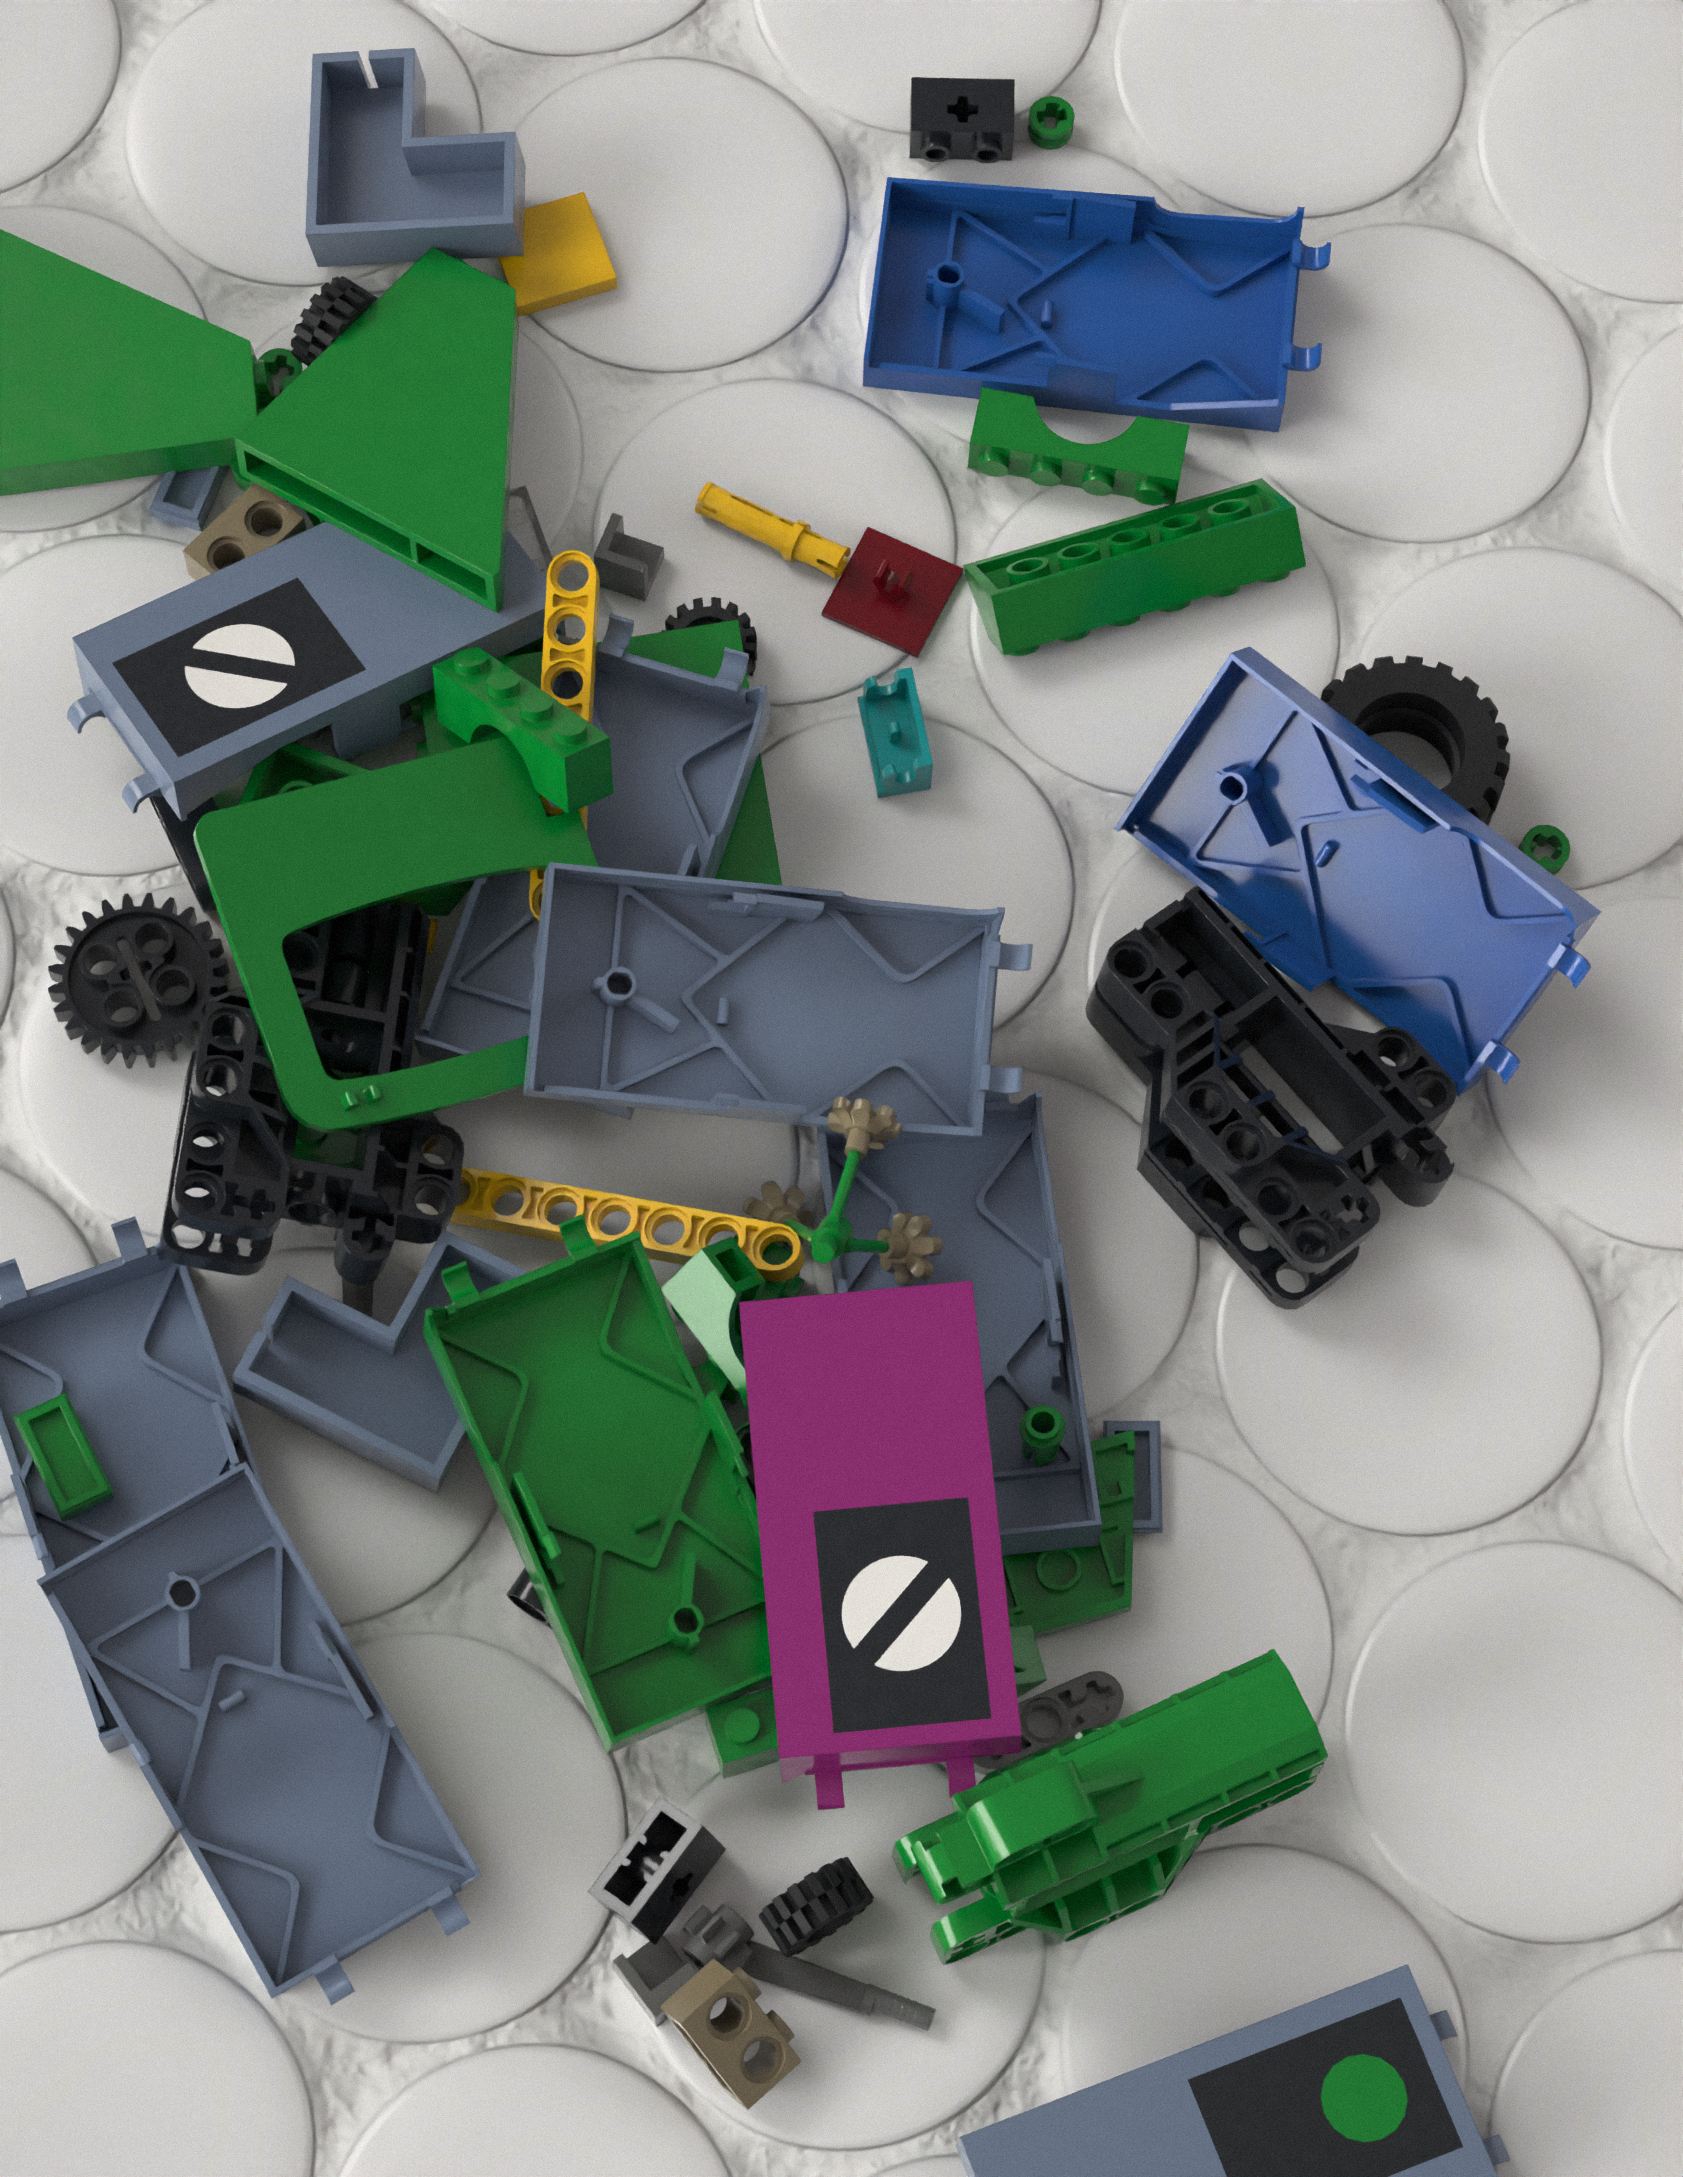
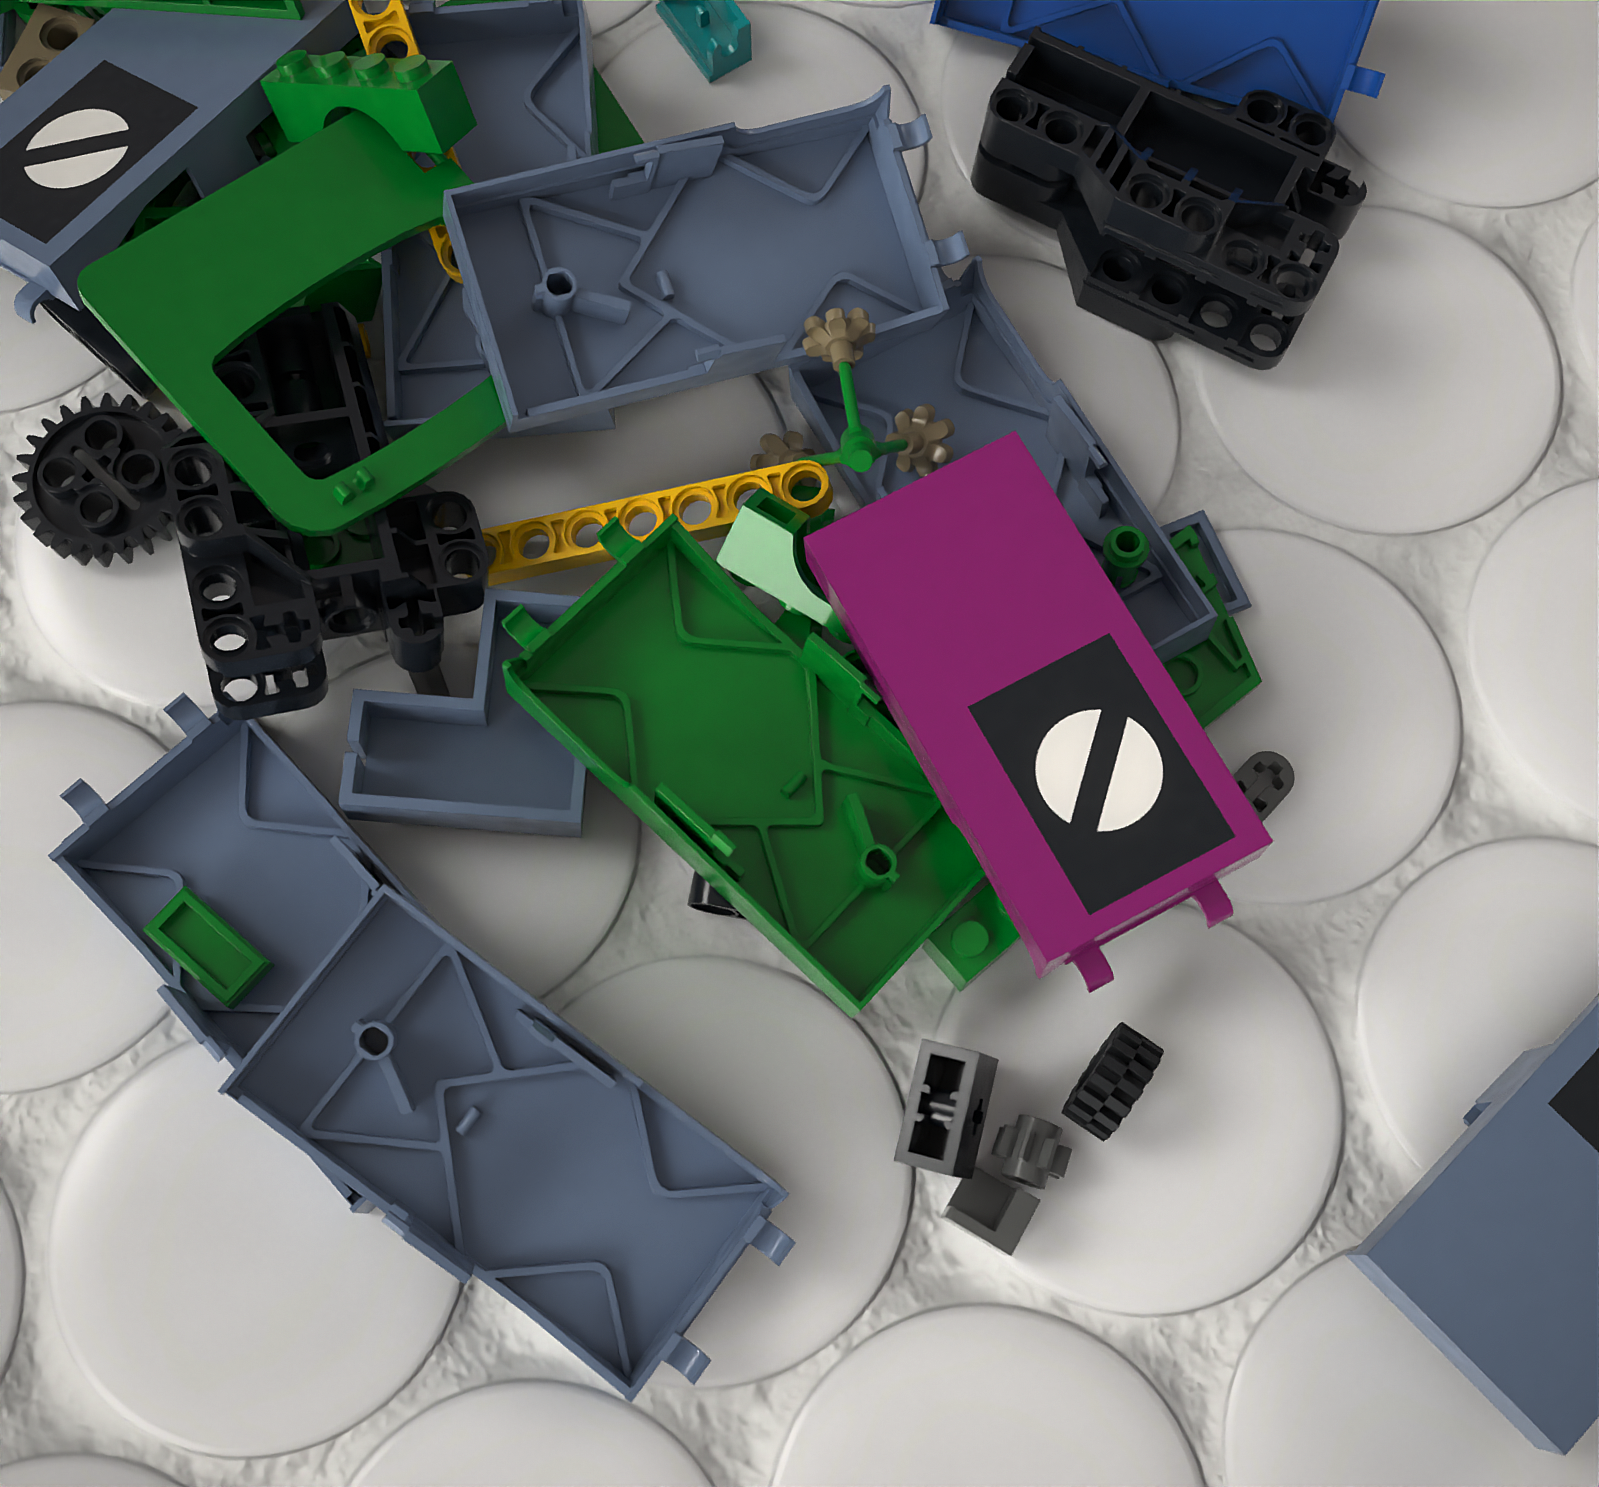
camera: 20 degrees left, 5 degrees up
(724, 2039) = (1090, 1238): dark tan brick -> none
(805, 1977) = (1157, 1145): dark grey piece -> none
(1113, 1810) = (1364, 864): green connector -> none

